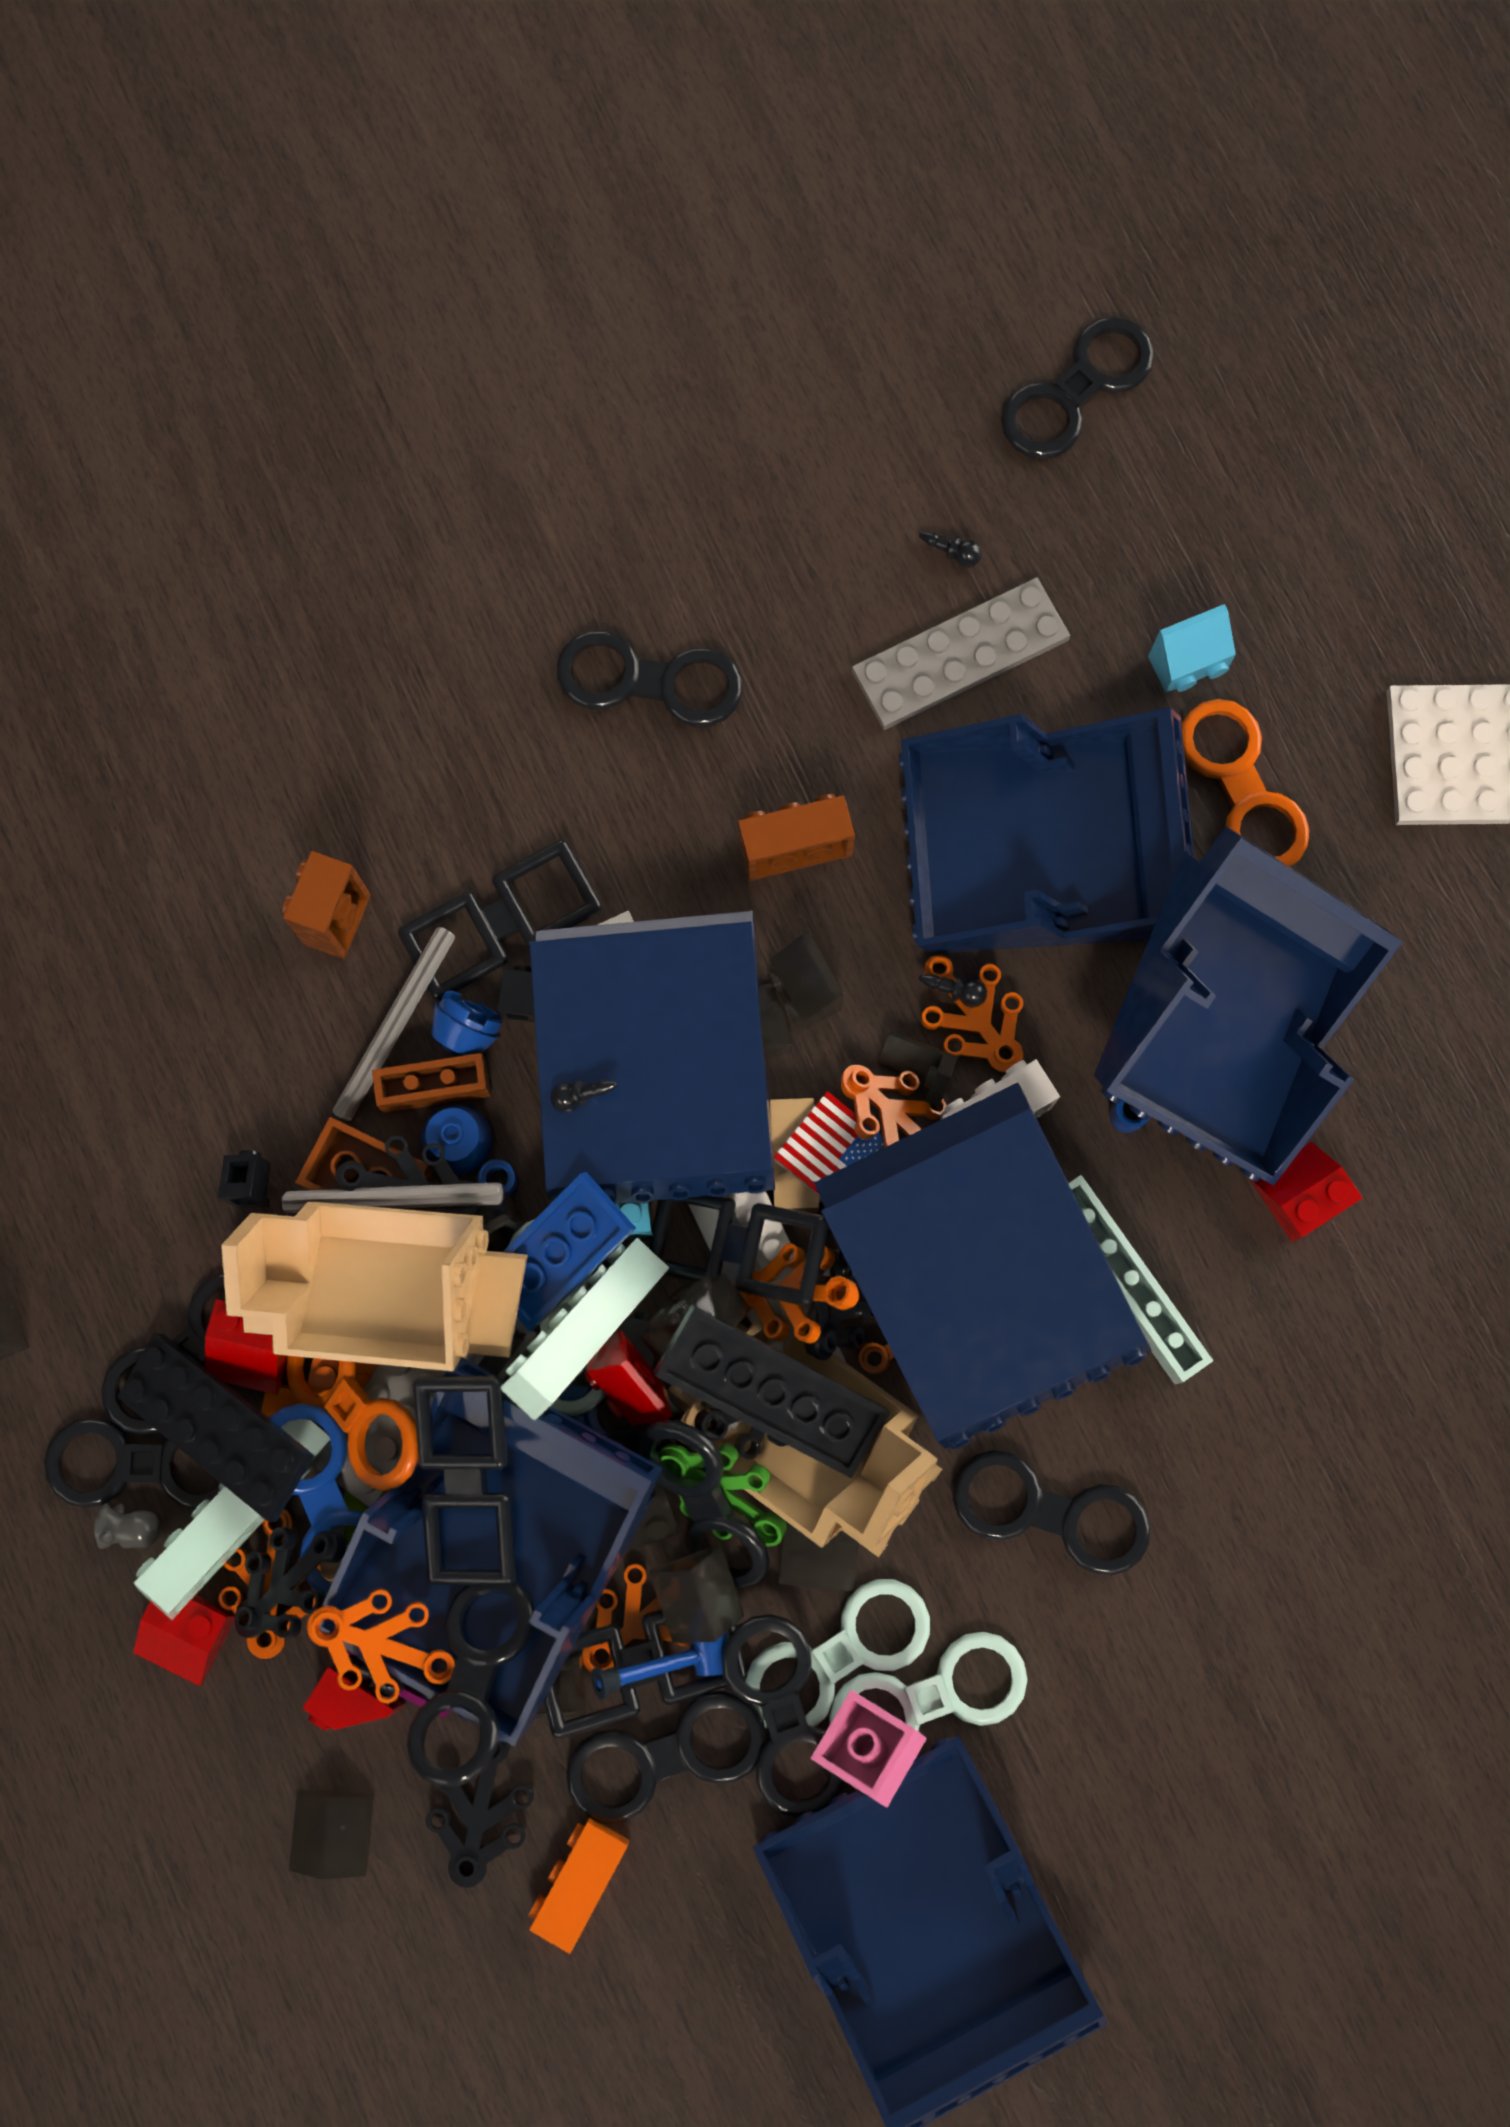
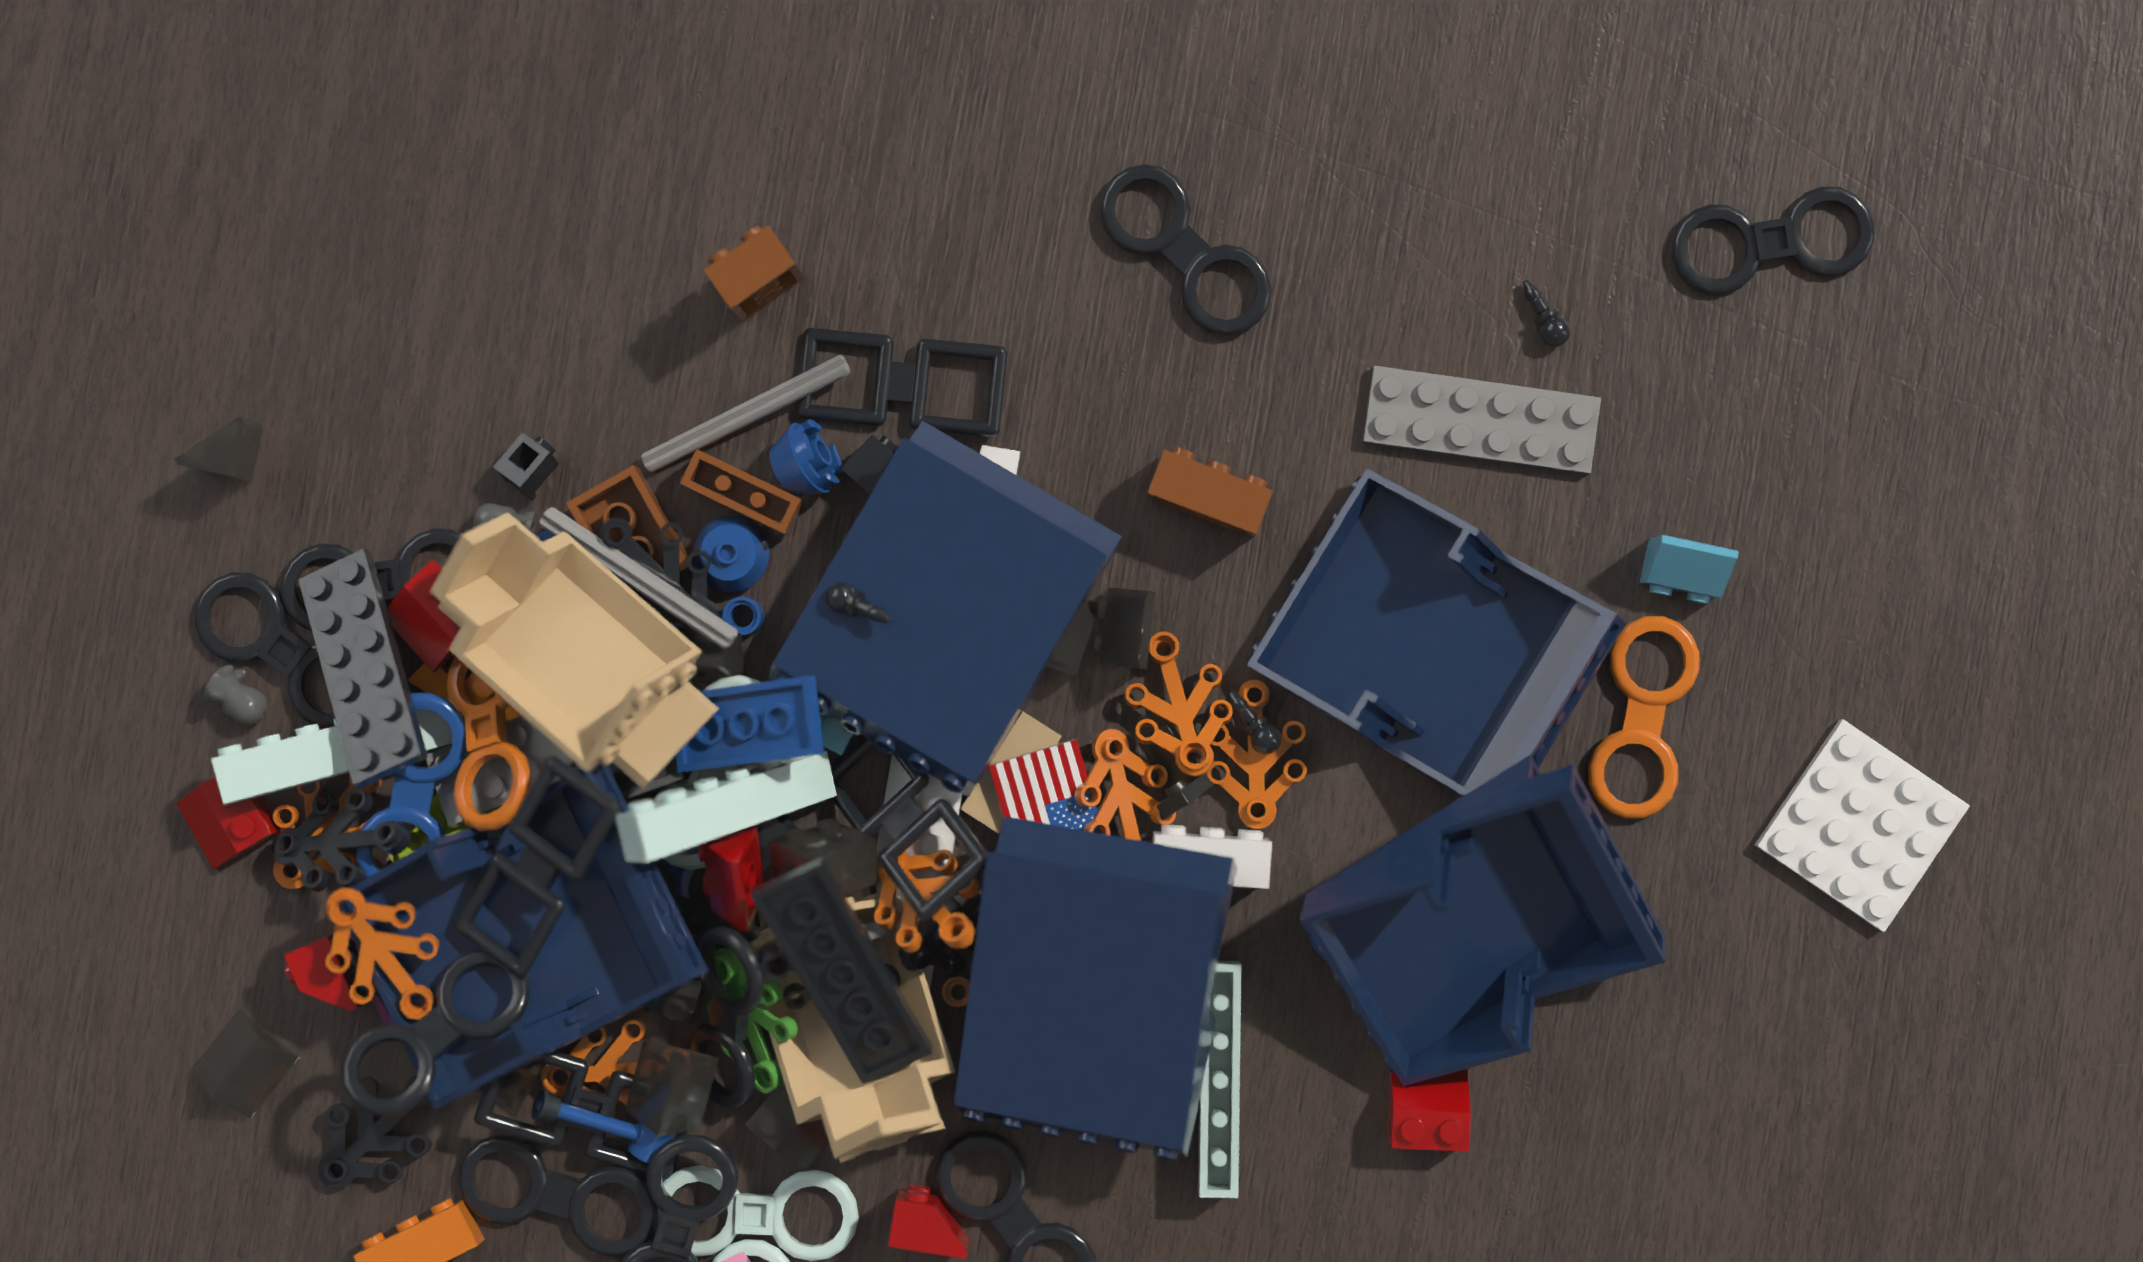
camera: 35 degrees right, 10 degrees up
(891, 1017) = (1180, 711): none -> orange plant
(980, 1562) = (926, 1224): none -> red slope

